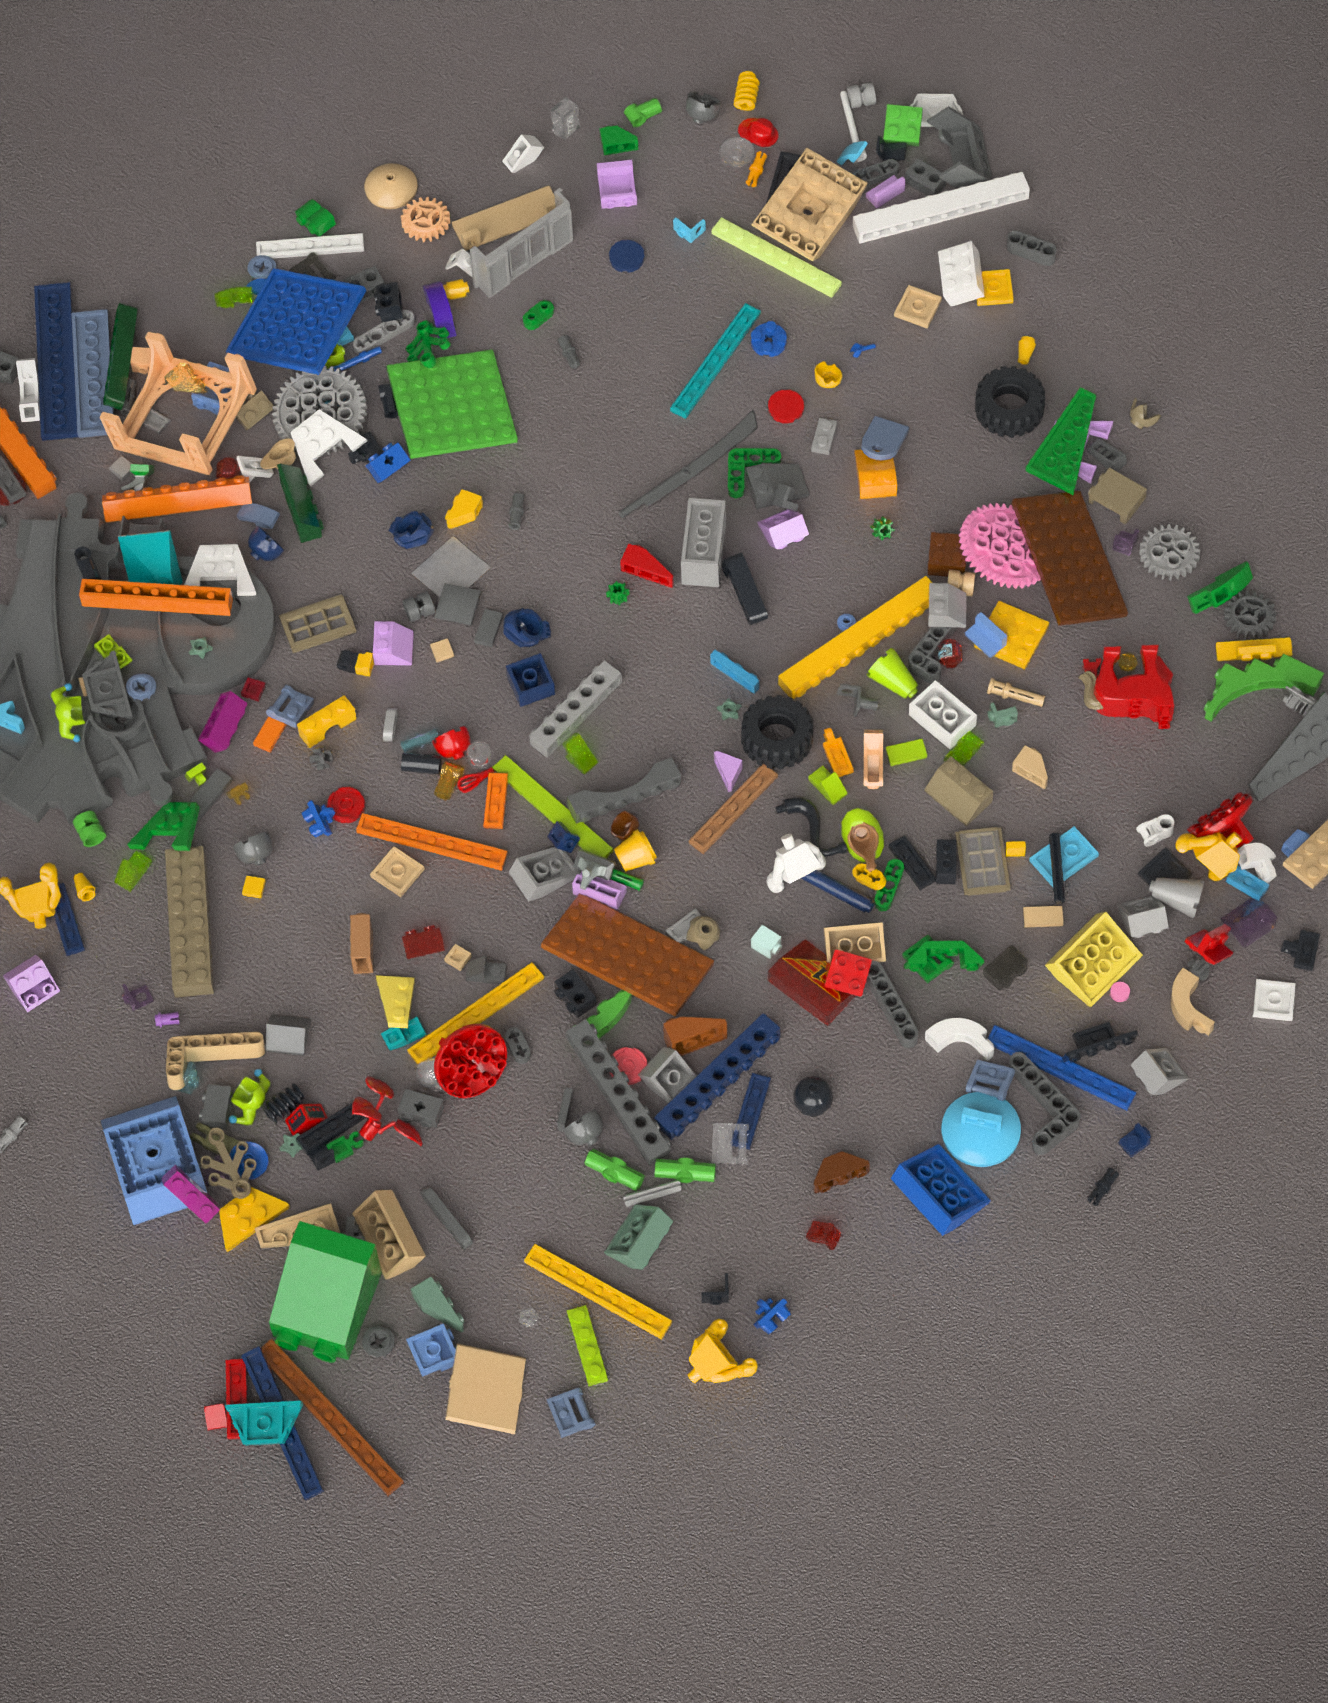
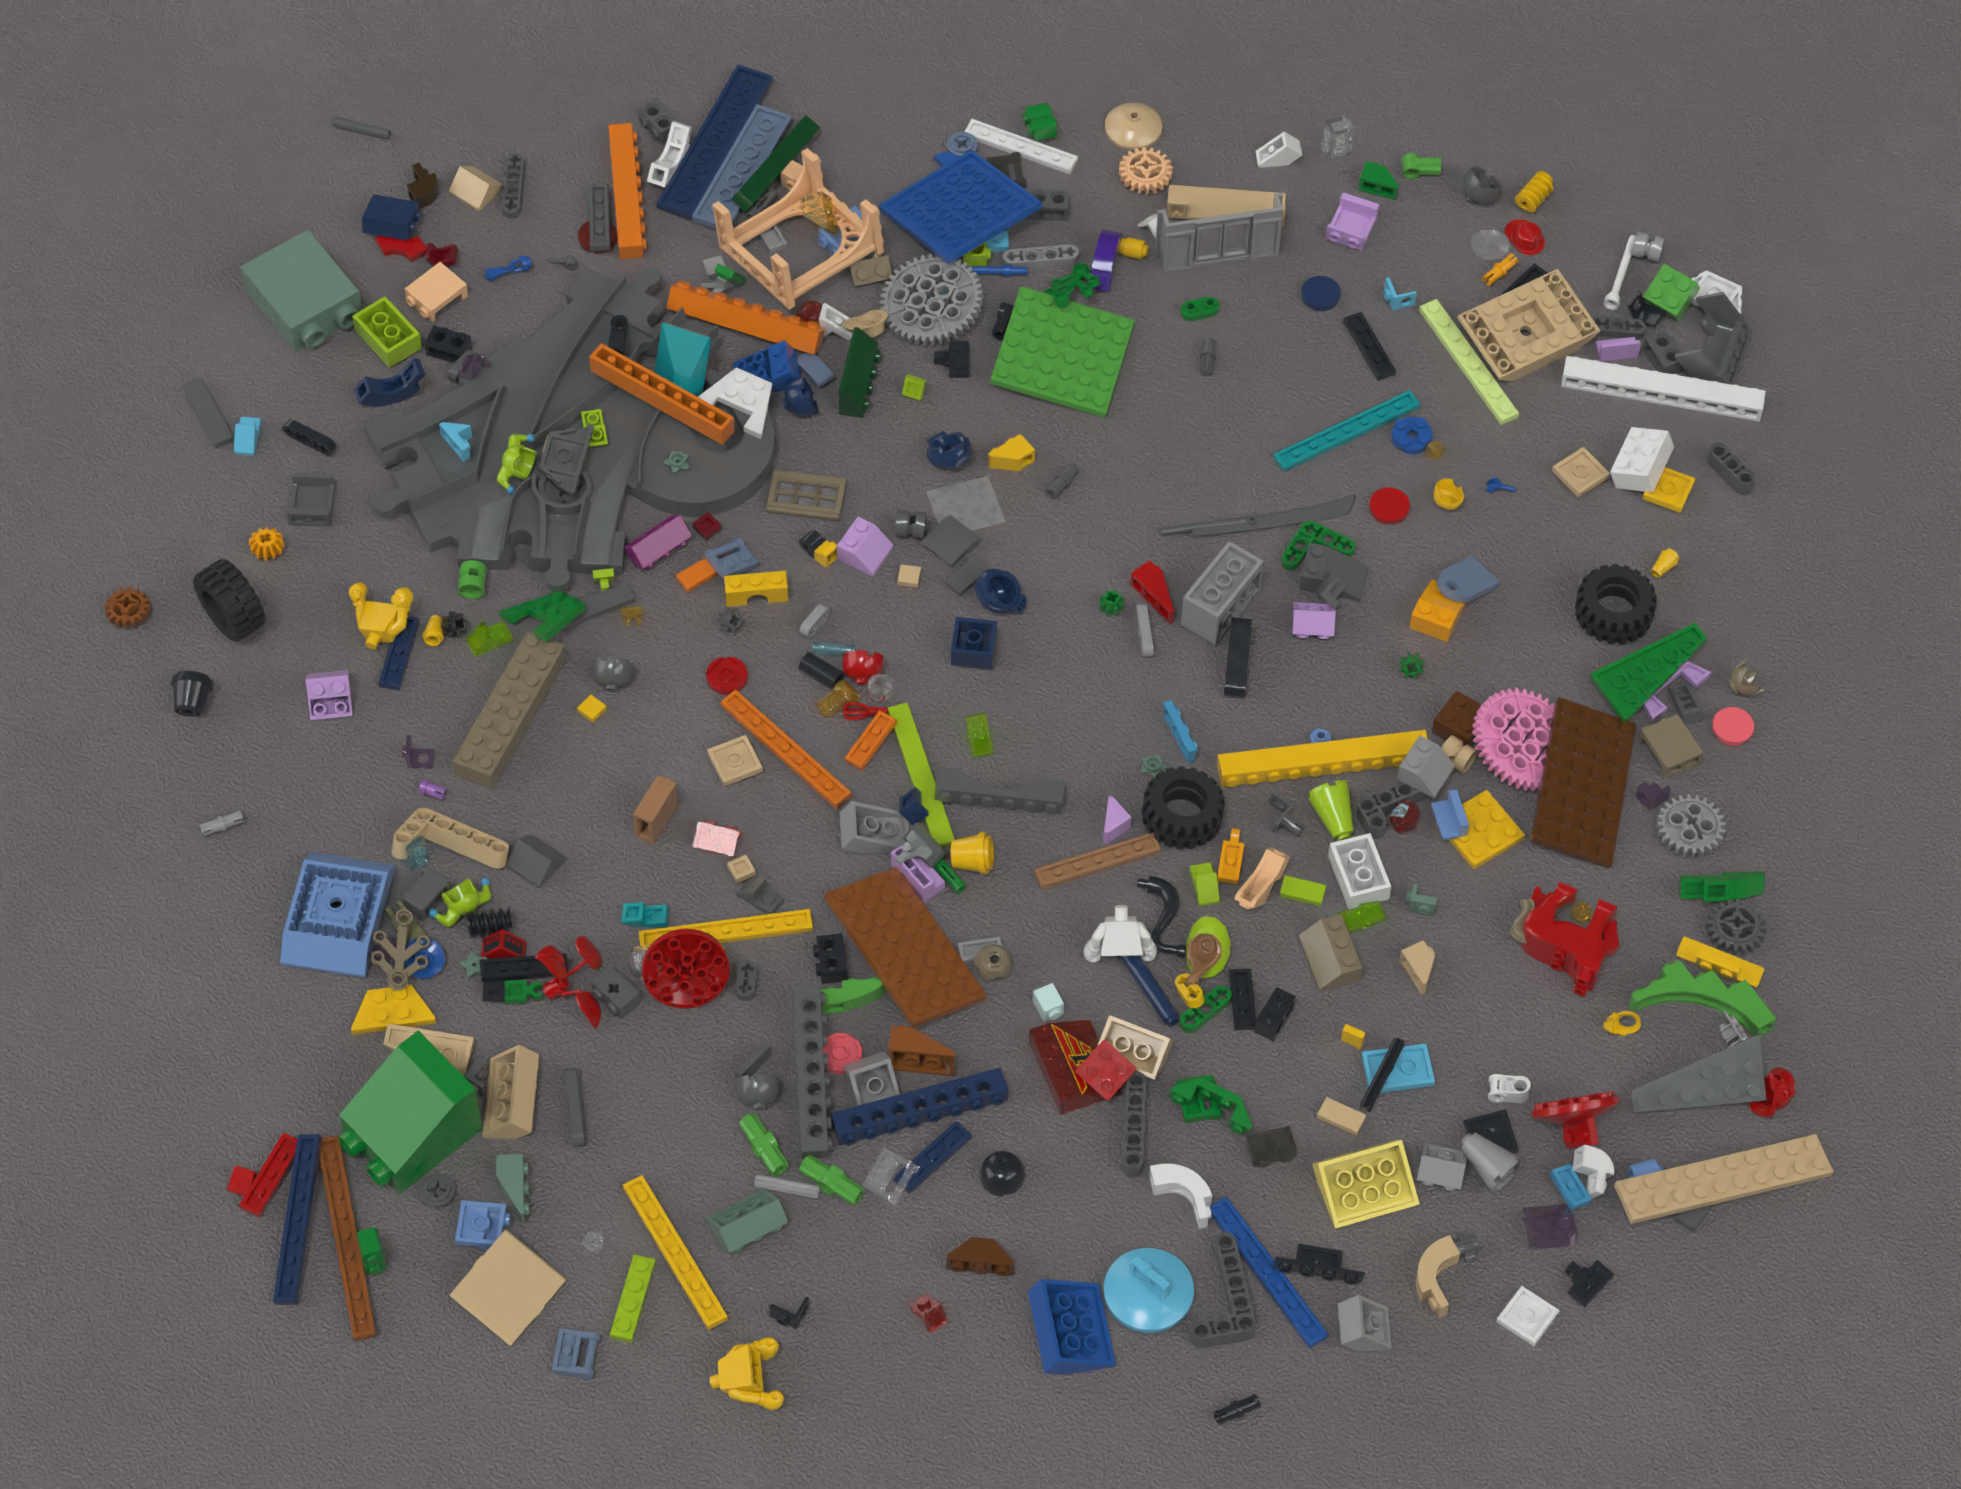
camera: 25 degrees right, 5 degrees down
(98, 873) = (454, 624): none -> black gear
(145, 681) = (606, 466): sand blue gear -> none
(190, 1194) = (345, 959): magenta brick -> none
(222, 528) = (774, 364): none -> blue slope
(228, 297) = (913, 157): clear neon green slope -> none
(264, 1422) = (279, 1207): teal wing -> none
(319, 435) = (913, 321): white wing -> none
(320, 816) = (694, 673): blue hips -> none
(350, 491) = (914, 387): none -> lime tile
(360, 1417) = (371, 1251): none -> green brick
(389, 302) = (1061, 230): black brick -> none
(396, 999) = (658, 878): light yellow wing -> none
(397, 458) = (956, 383): blue brick -> none
(561, 731) = (1013, 694): light grey brick -> none
(624, 825) = (979, 822): reddish brown hair -> none
(657, 602) = (1144, 630): none -> light grey beam
(691, 281) = (1369, 346): none -> black tile
(778, 1309) = (818, 1365): blue hips -> none
(794, 343) = (1435, 450): none -> clear yellow plate
(824, 436) = (1410, 551): light grey plate -> none
(852, 152) = (1604, 295): medium azure slope -> none
(982, 861) = (1313, 1032): clear piece -> none
(990, 1074) = (1191, 1242): sand blue plate -> none
(1007, 689) = (1438, 882): tan pin -> none
(1120, 992) = (1373, 1228): bright pink tile -> none
(1135, 1140) = (1298, 1381): dark blue bracket -> none
(1153, 456) = (1733, 726): none -> coral tile
(1204, 740) = (1614, 1027): none -> yellow piece
(1211, 944) = (1494, 1227): red bracket -> none
(1214, 851) = (1546, 1135): yellow torso -> none

